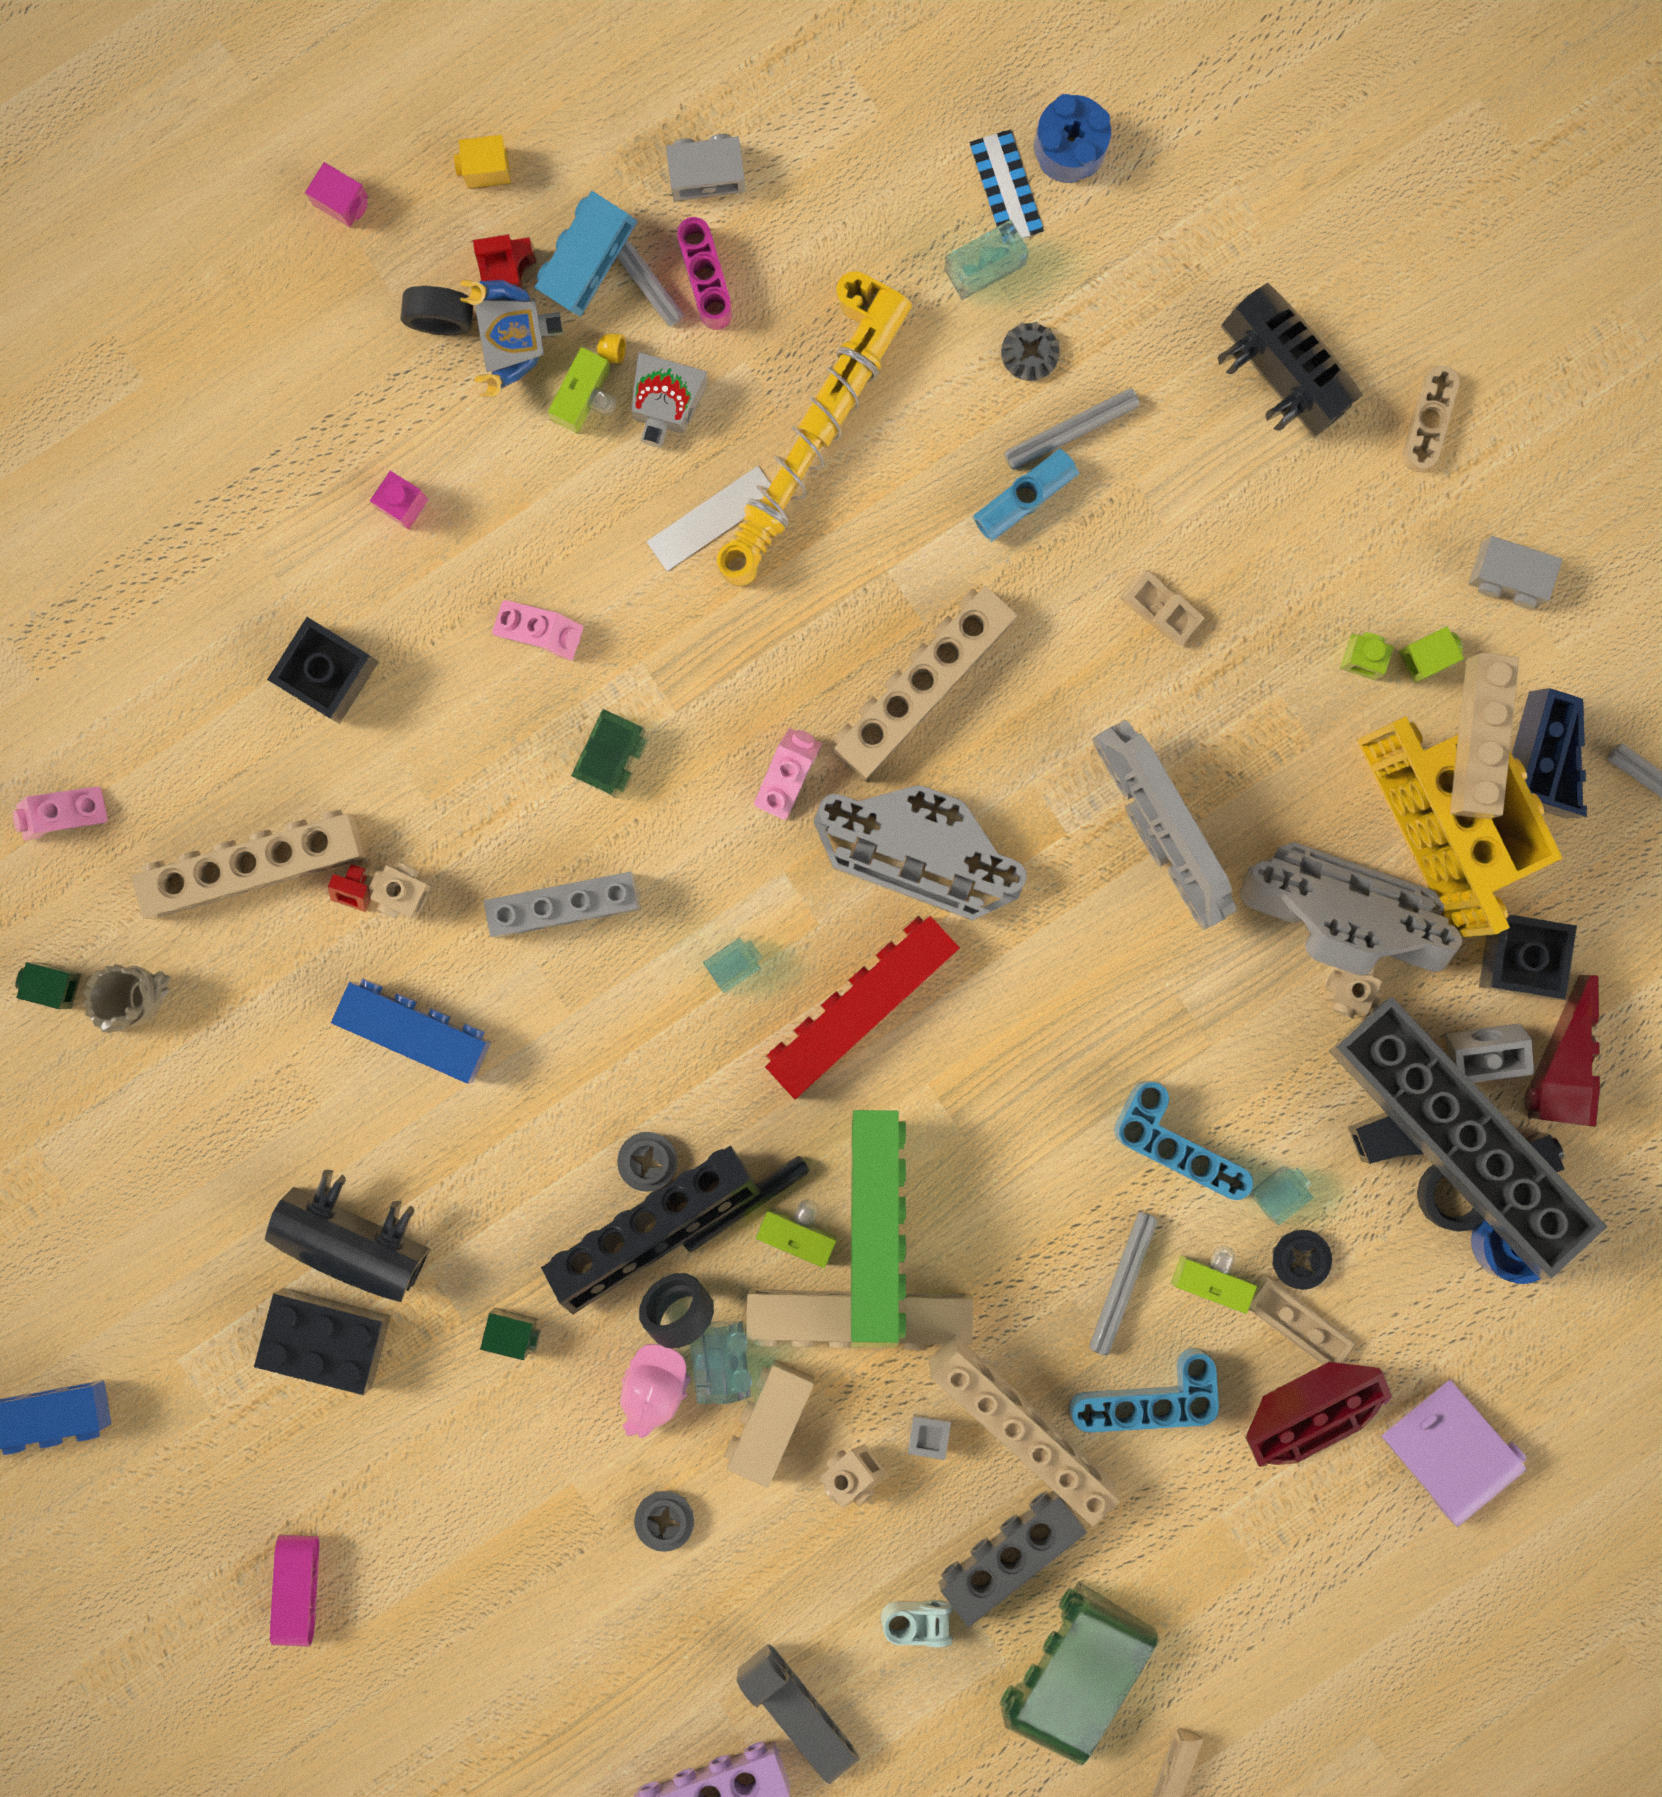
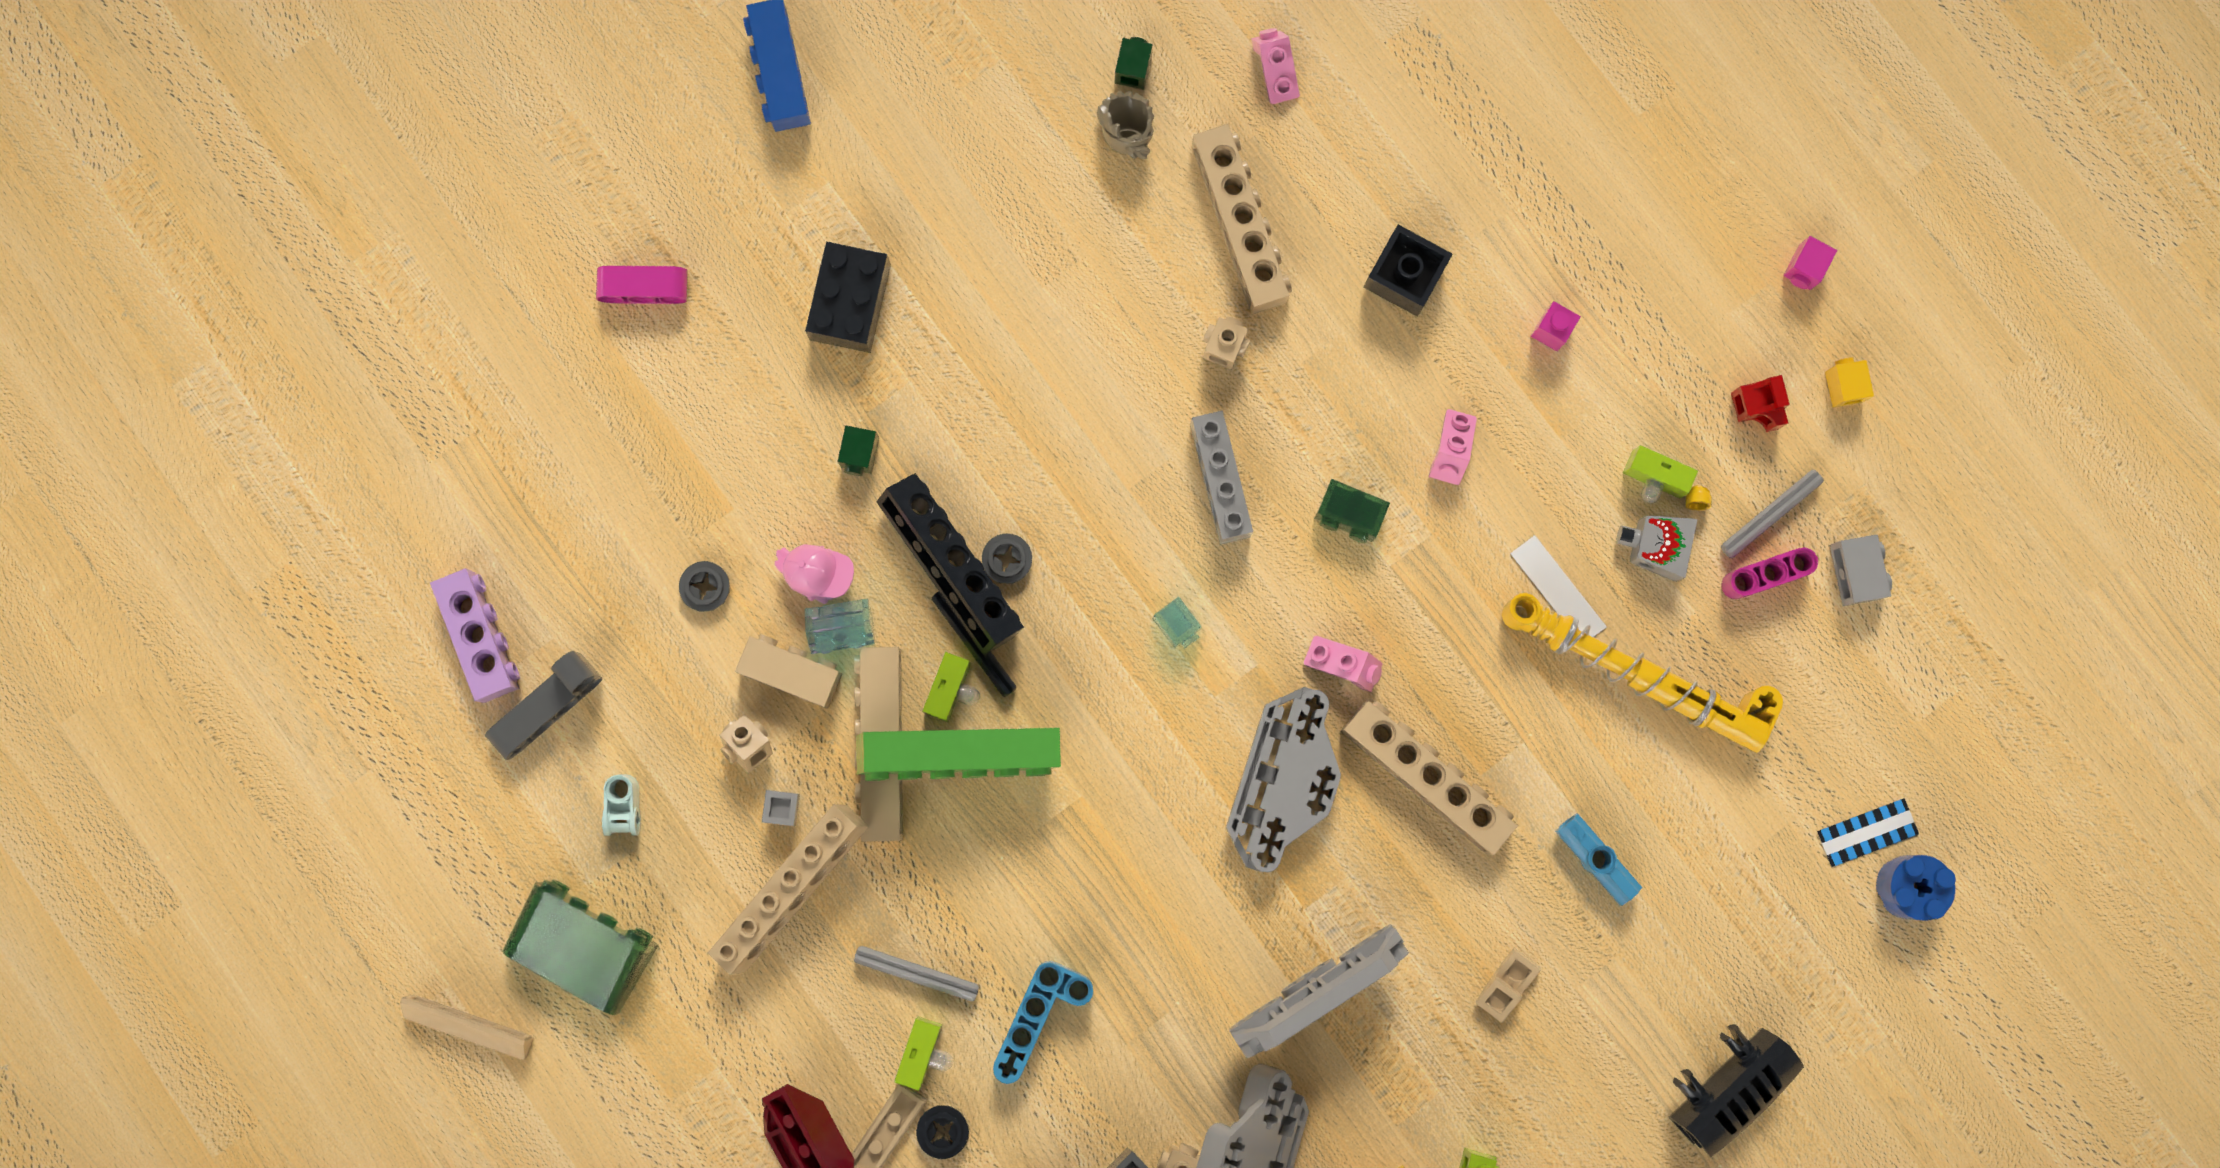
camera: 85 degrees right, 5 degrees down
(345, 1243) = (929, 311): black piece -> none
(351, 889) = (1224, 302): red tile -> none
(410, 1031) = (1108, 357): blue brick -> none
(436, 310) = (1719, 349): black tyre -> none
(508, 331) = (1706, 409): torso -> none
(585, 253) = (1778, 470): dark azure brick -> none
(690, 1325) = (871, 598): black tyre -> none
(862, 1007) = (1146, 735): red brick -> none
(974, 1600) = (641, 853): dark grey brick -> none
(986, 260) = (1802, 815): clear light blue brick -> none
(1031, 367) = (1710, 859): dark grey gear -> none
(1072, 428) = (1659, 898): light grey axle -> none
(1144, 1399) = (816, 994): dark azure beam -> none
(1282, 1194) = (999, 1111): clear light blue brick -> none

